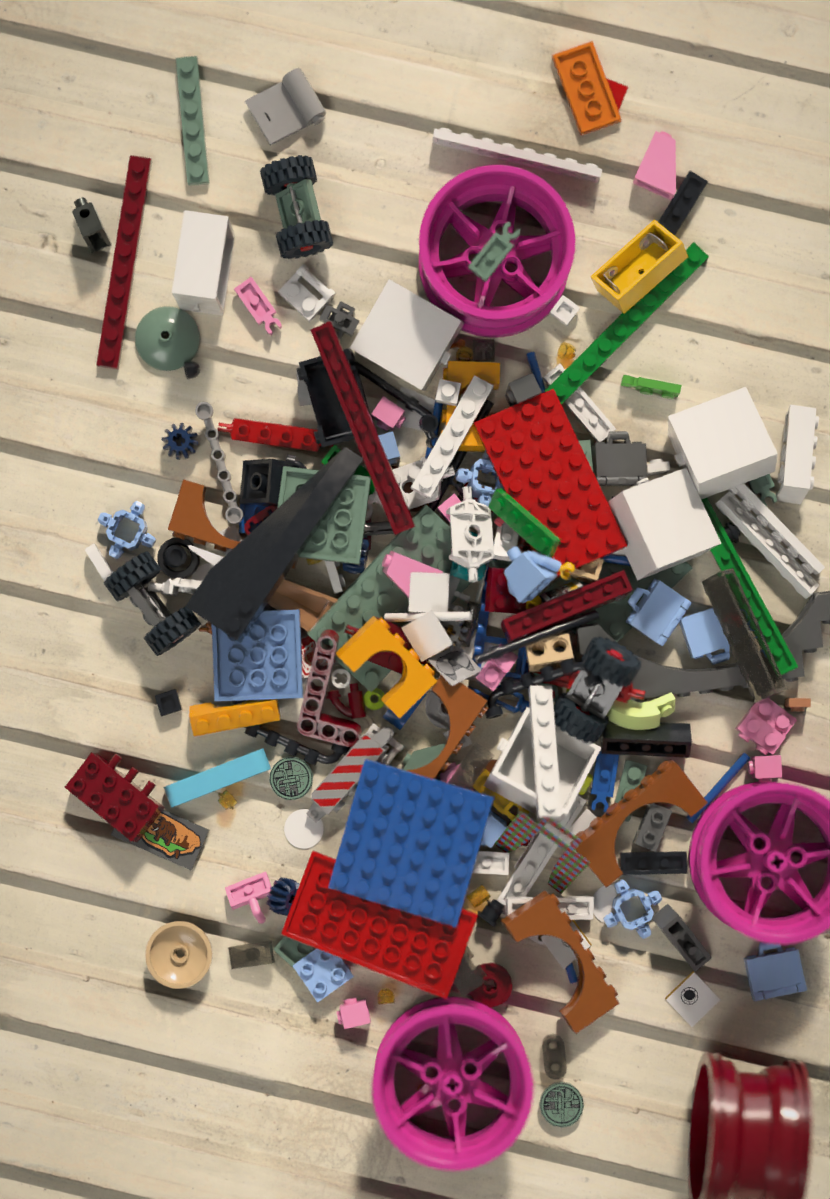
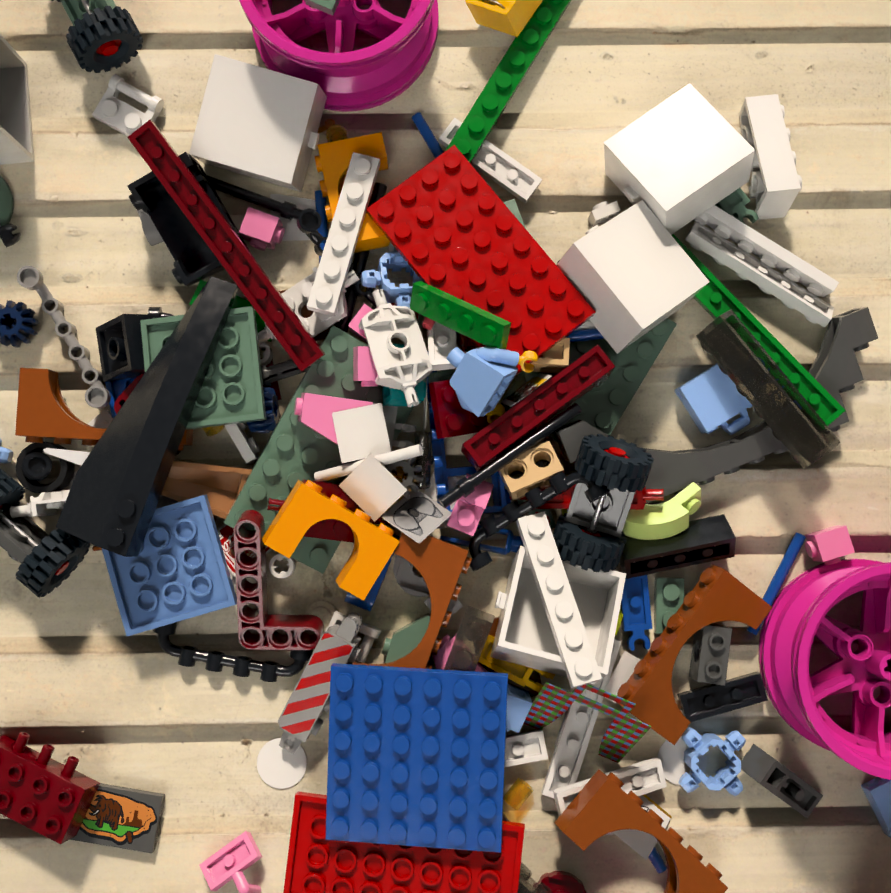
camera: 20 degrees left, 0 degrees up
(168, 702) = (74, 649): black plate -> none
(211, 718) = (134, 656): light orange arch -> none
(217, 778) = (156, 729): medium azure beam -> none
(227, 800) = (176, 754): clear yellow plate -> none
(257, 304) = (70, 136): bright pink plate -> none
(271, 434) = (124, 288): red plate -> none
(282, 895) = (271, 859): dark blue gear -> none
(291, 778) = (250, 705): tile -> none
(341, 319) = (173, 128): dark grey piece -> none
(356, 702) = (307, 591): dark red plant -> none
(374, 706) = (322, 587): lime plate -> none
(390, 447) = (272, 267): light blue brick -> none
(442, 543) = (364, 367): none -> bright pink brick
(448, 392) = (325, 181): white plate -> none
(483, 350) = (358, 123): clear smoke tile -> none
(491, 912) = (539, 810): black brick -> none
(522, 390) = (416, 154): dark grey brick -> none
(564, 310) = (444, 54): white plate -> none
(566, 351) = (459, 102): clear yellow hinge -> none
(619, 463) = (557, 217): dark grey piece -> none
(651, 386) = (572, 117): bright green plate -> none
(657, 611) = (649, 386): light blue piece -> none
(692, 999) = (811, 852): white sticker -> none
(732, 532) = (715, 268): black plate -> none
(765, 726) = (814, 494): bright pink plate -> none
(798, 704) = (847, 457): nougat plate -> none

